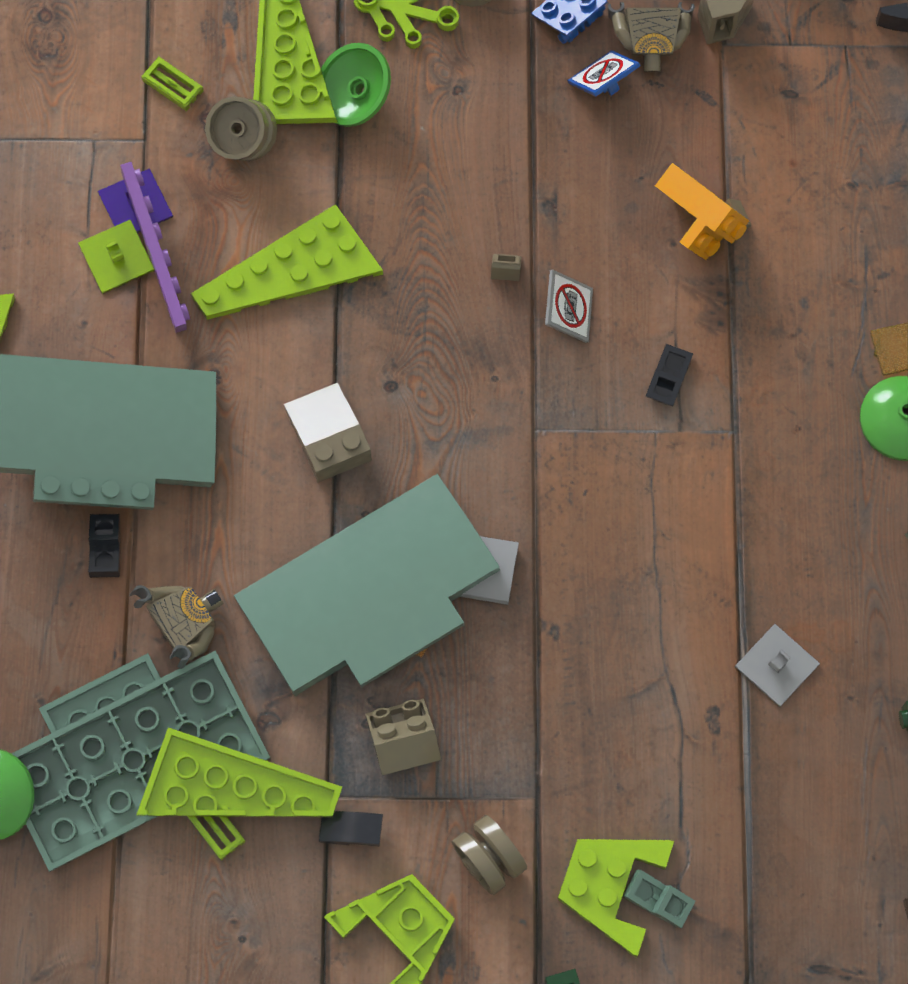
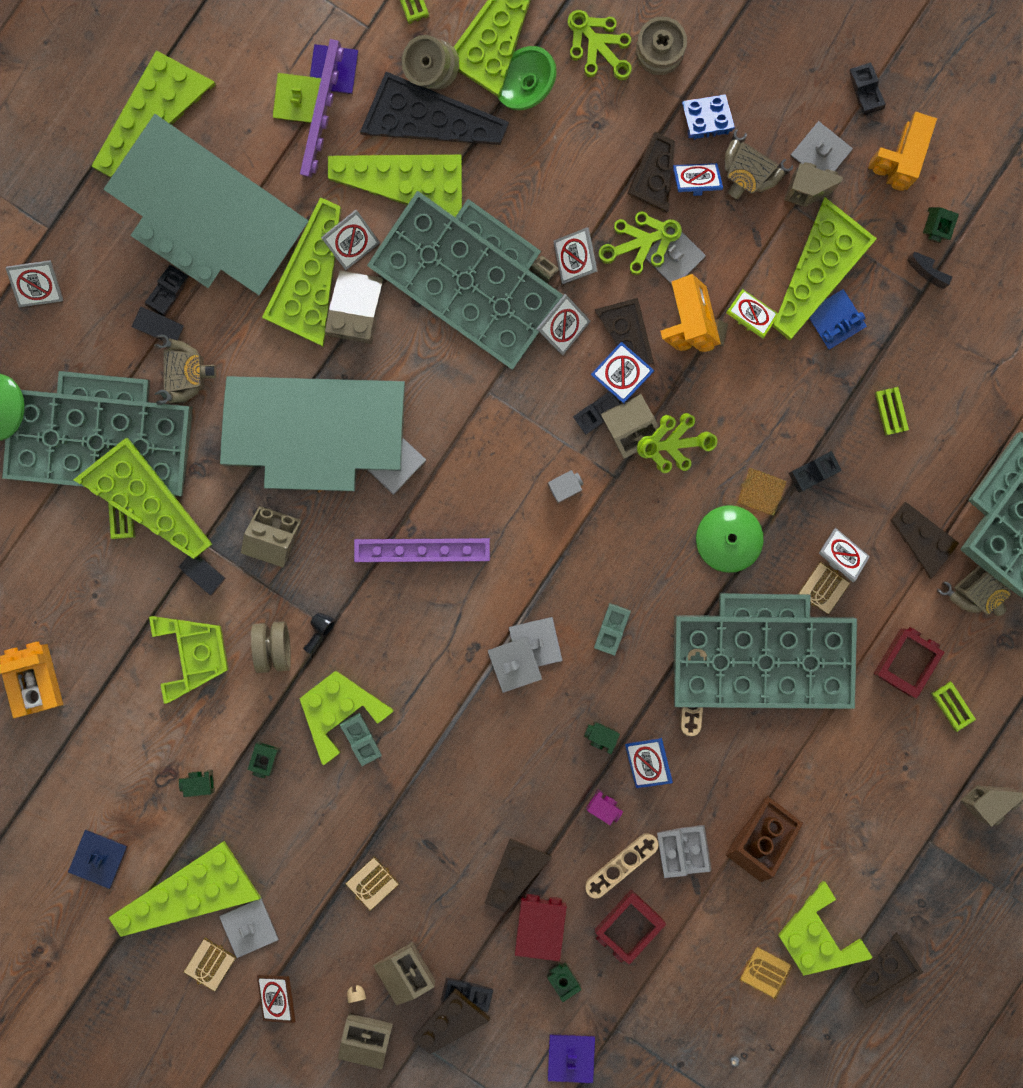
camera: 30 degrees right, 15 degrees up
(114, 589) = (156, 324): none -> black slope
(258, 444) = (305, 287): none -> lime wing
(259, 190) = (420, 113): none -> black wing
(276, 362) = (350, 240): none -> piece
(431, 319) = (468, 274): none -> sand green slope
(527, 797) = (322, 626): none -> black bar
(531, 229) = (575, 256): none -> piece
(553, 99) = (653, 175): none -> dark brown wing
(581, 642) = (421, 550): none -> medium lavender plate
(590, 172) = (643, 240): none -> lime plant
(633, 168) = (679, 258): none -> light grey piece
(642, 272) = (627, 326): none -> dark brown wing
(667, 315) = (622, 372): none -> piece
(690, 473) = (565, 486): none -> light grey brick
(717, 363) = (629, 424): none -> dark tan slope
(754, 367) = (673, 443): none -> lime plant
(759, 171) = (752, 313): none -> piece
(772, 699) = (514, 664): none -> light grey piece
(794, 69) = (828, 256): none -> lime wing
(848, 593) = (612, 629): none -> sand green slope
(849, 125) = (837, 319): none -> blue hinge

